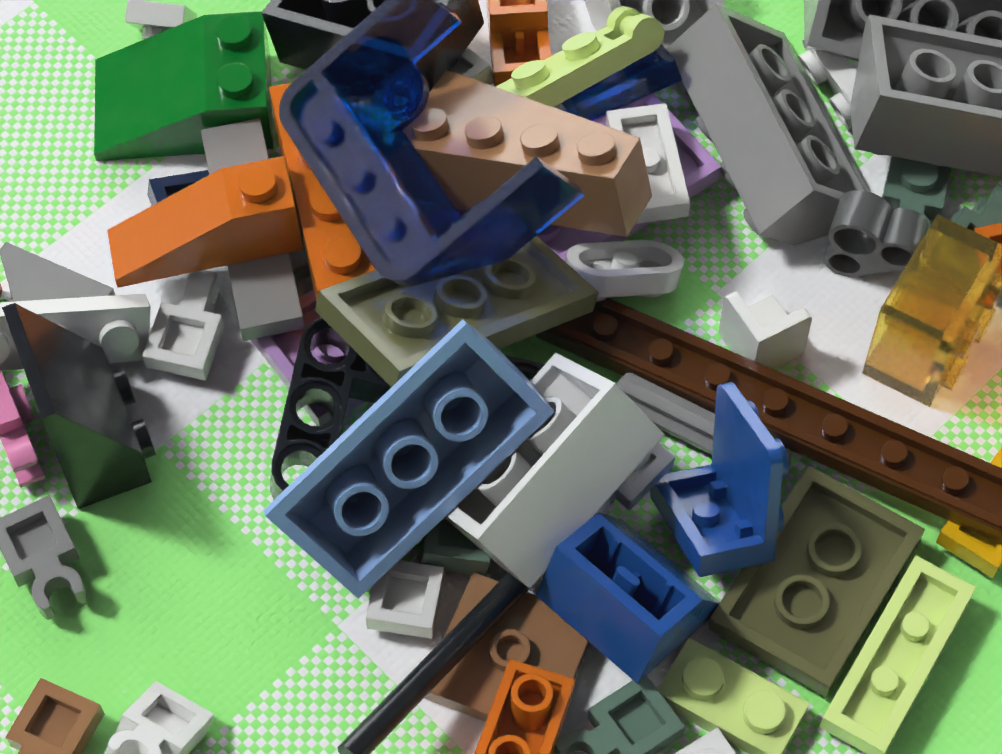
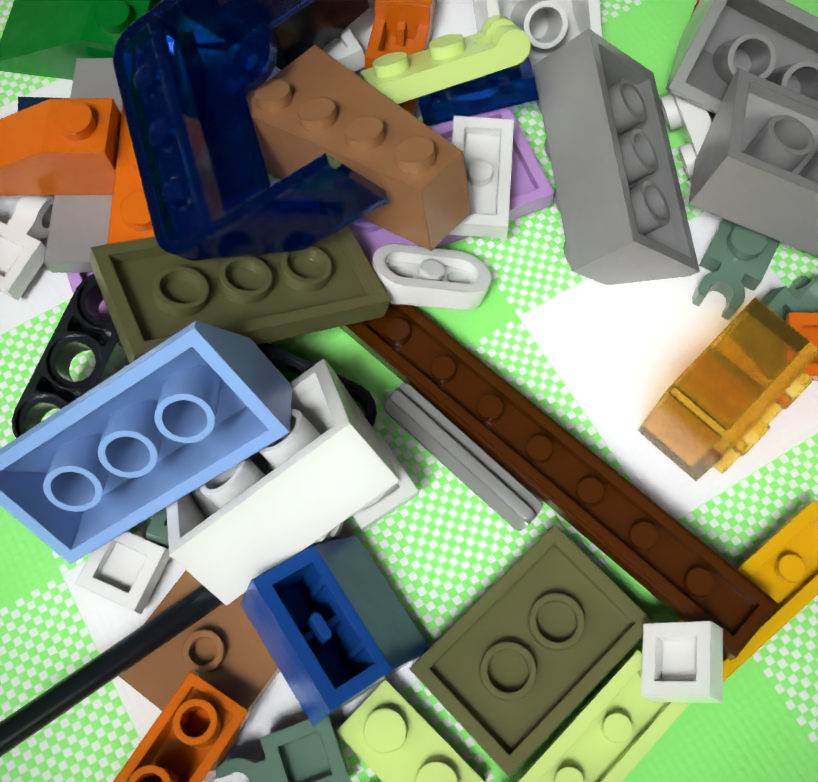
camera: 15 degrees right, 10 degrees up
(729, 509) = (458, 548): blue bracket -> none
(764, 330) = (550, 370): white panel -> none
(871, 235) = (684, 297): dark grey piece -> none
(957, 546) = (682, 662): none -> white plate

